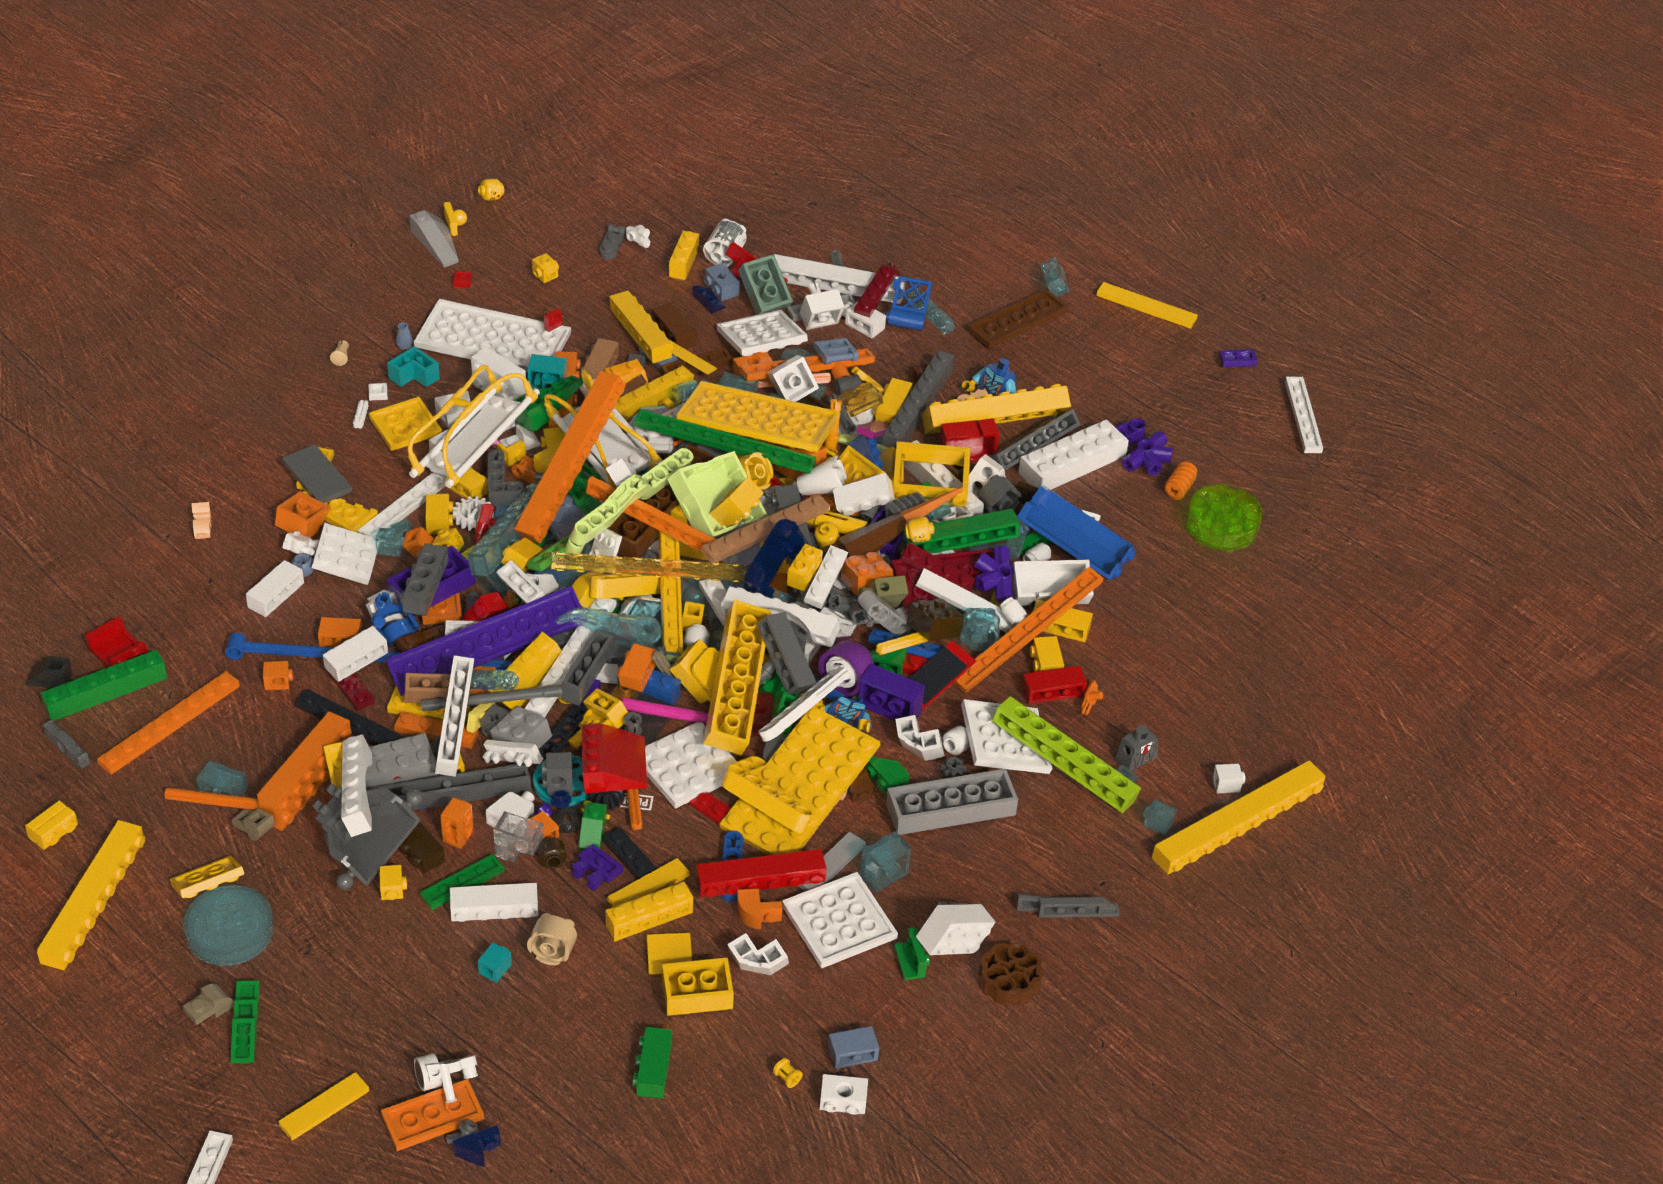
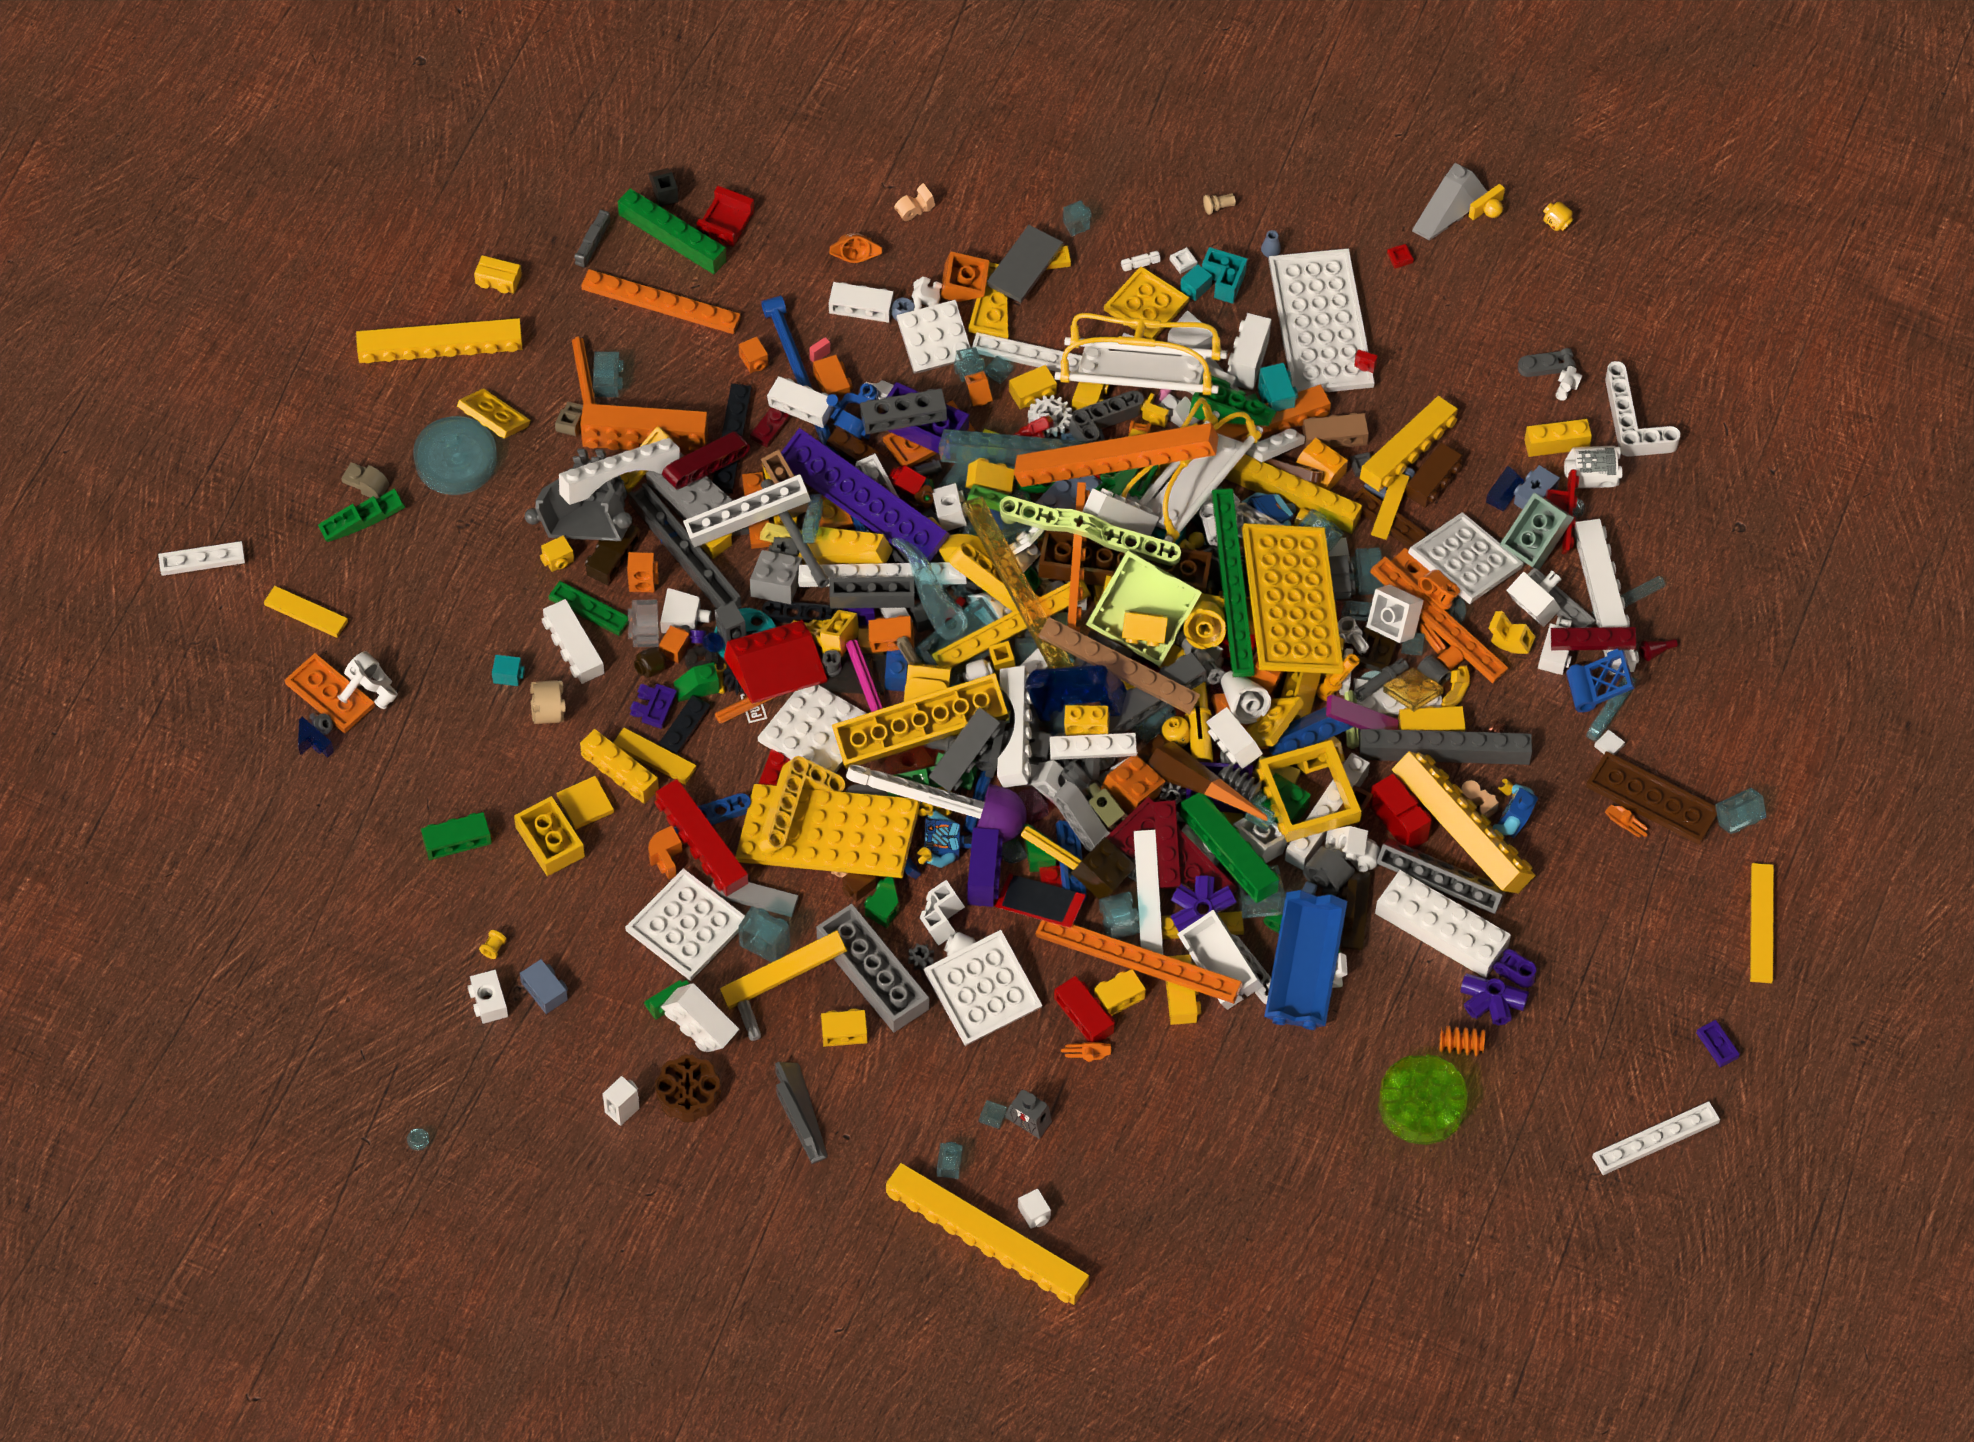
camera: 70 degrees right, 15 degrees up
(218, 571) = (855, 248): none -> orange hat
(293, 432) = (1076, 217): none -> clear light blue brick
(304, 632) = (820, 349): none -> coral tile
(376, 732) = (705, 460): none -> dark red beam
(406, 387) = (1196, 282): none -> teal brick
(449, 537) = (993, 412): yellow brick -> none
(512, 752) = (744, 571): white plate -> none
(520, 582) = (938, 490): white plate -> none
(545, 268) = (1453, 320): yellow brick -> none
(686, 218) = (1626, 416): none -> white beam
(764, 961) = (604, 863): white brick -> none
(788, 348) = (1438, 587): none -> orange piece
(836, 350) = (1474, 632): sand blue plate -> none
(842, 330) = (1509, 636): none -> yellow brick
(919, 529) = (1194, 802): yellow head -> none
(926, 859) = (783, 969): none -> yellow tile
(960, 324) = (1610, 743): none -> white tile
(998, 843) = (844, 1027): none -> yellow brick
(1008, 1022) = (621, 1100): none -> white brick
(1013, 611) = (1156, 937): white brick -> none
(1026, 338) = (1625, 819): none -> orange piece
(1040, 552) = (1265, 936): white brick -> none
(1066, 754) = (998, 974): lime brick -> none

